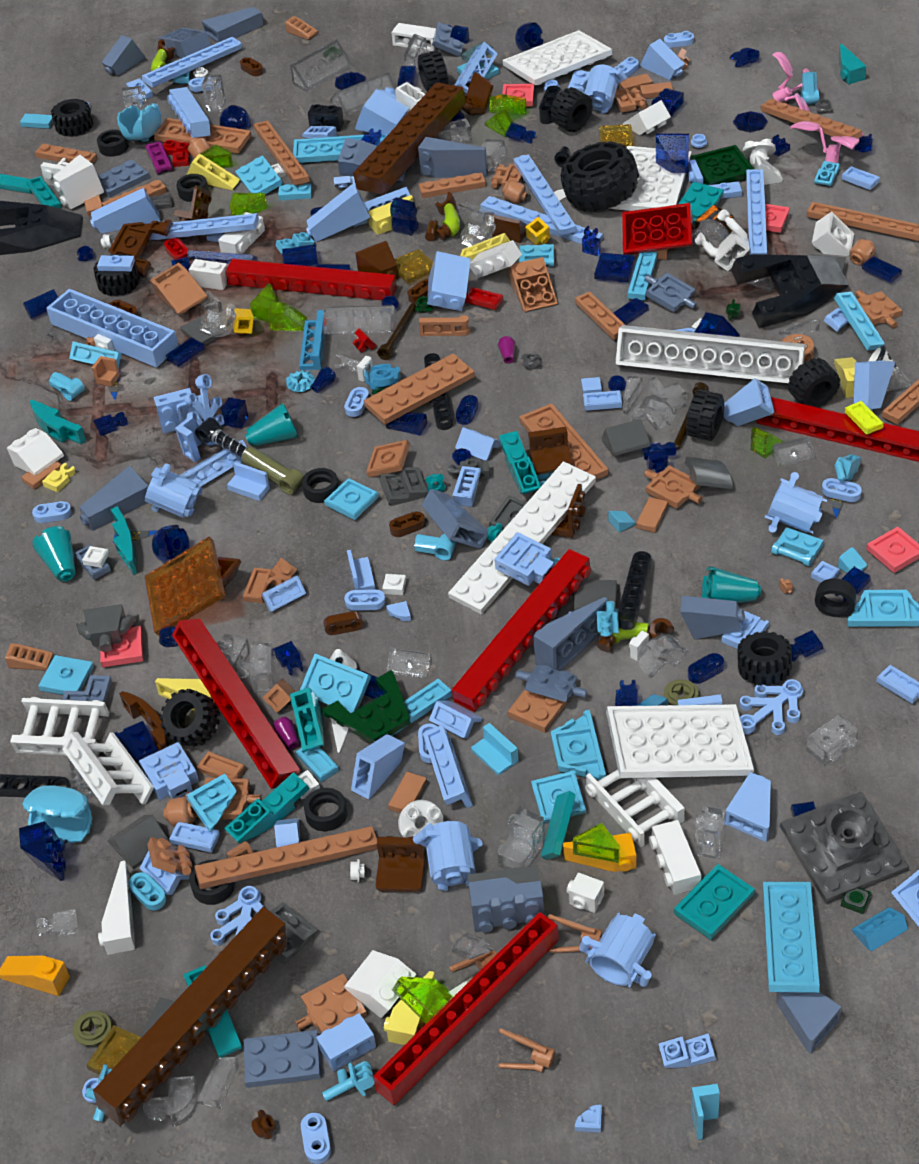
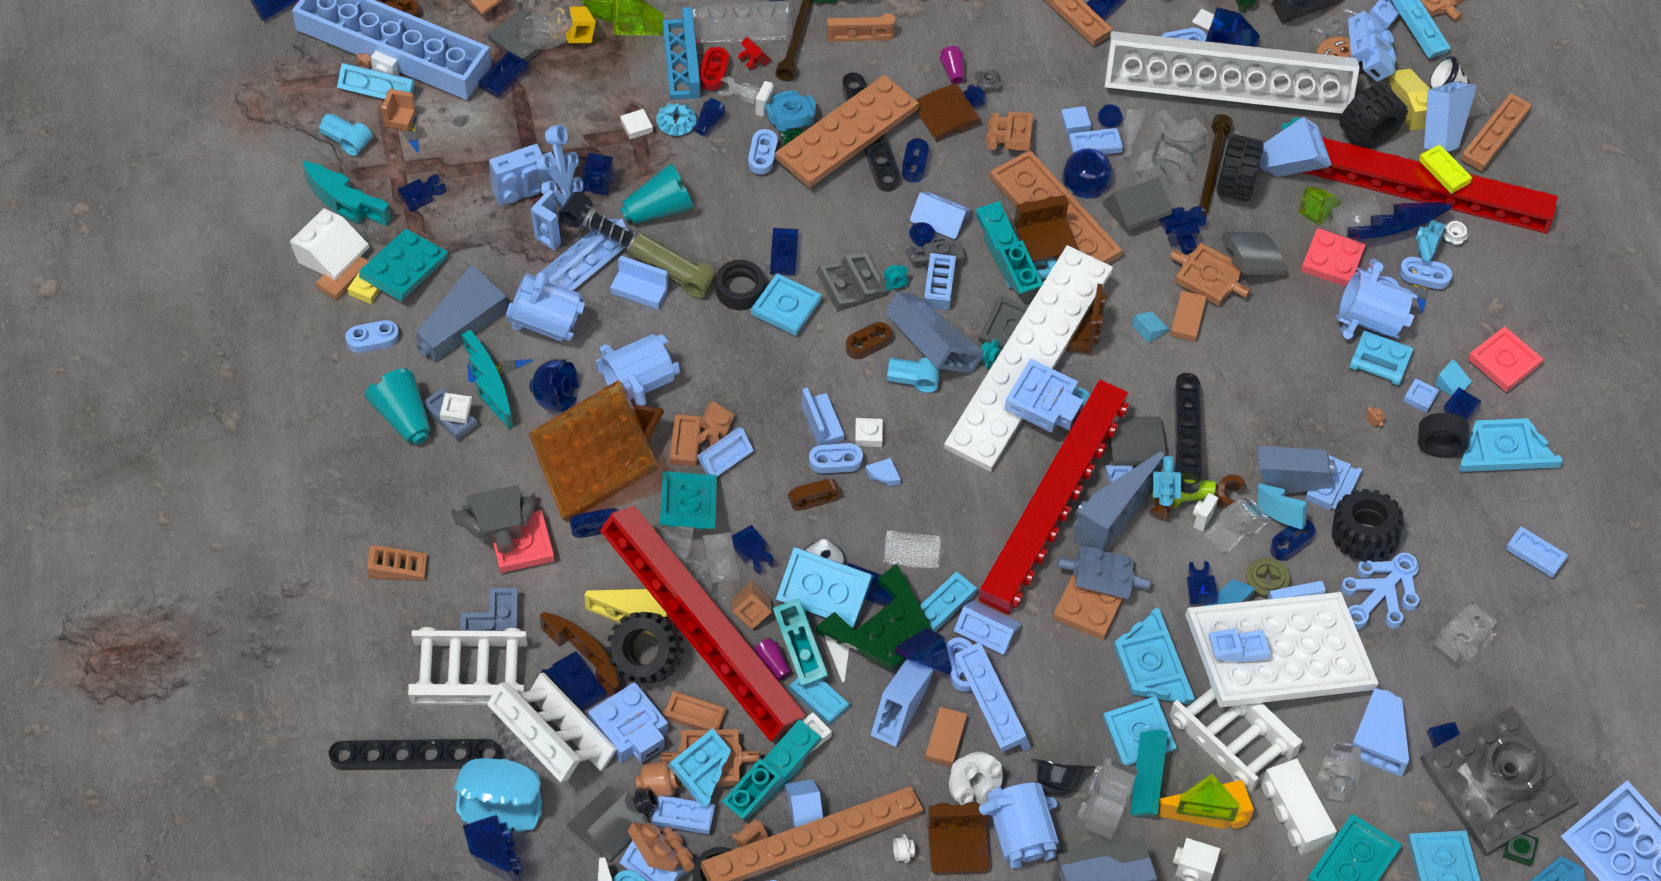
camera: 15 degrees left, 10 degrees up
(65, 675) = (453, 587): medium azure plate -> none
(84, 466) = (403, 264): none -> teal plate
(166, 823) = (645, 801): none -> black plate
(232, 533) = (638, 366): none -> light blue container
(246, 621) = (688, 500): none -> teal plate
(271, 384) = (636, 124): none -> white tile
(328, 822) = (847, 746): black tyre -> none
(334, 346) = (711, 71): none -> red plate
(358, 465) = (784, 251): none -> clear blue plate
(388, 458) = (824, 241): nougat plate -> none
(401, 728) = (926, 649): none -> clear blue slope
(412, 423) = (843, 190): clear blue slope -> none
(486, 824) = (1058, 778): none -> black piece
(496, 378) = (946, 112): none -> reddish brown slope
(496, 750) = (1047, 670): medium azure panel -> none
(518, 369) = (975, 96): none -> clear blue plate
(541, 392) = (1015, 132): none -> nougat plate
(592, 419) = (1087, 173): none -> clear blue cylinder
(647, 735) = (1241, 647): none -> light blue slope
(698, 643) = (1281, 508): none -> medium azure slope
(729, 586) = (1305, 425): teal cone -> none
(767, 476) = (1332, 257): none -> coral plate
(806, 645) = (1415, 500): clear blue plate -> none
(821, 338) = (1372, 45): none -> light blue piece
(830, 451) = (1404, 218): none -> clear blue slope
(869, 464) = (1455, 233): none -> white plate

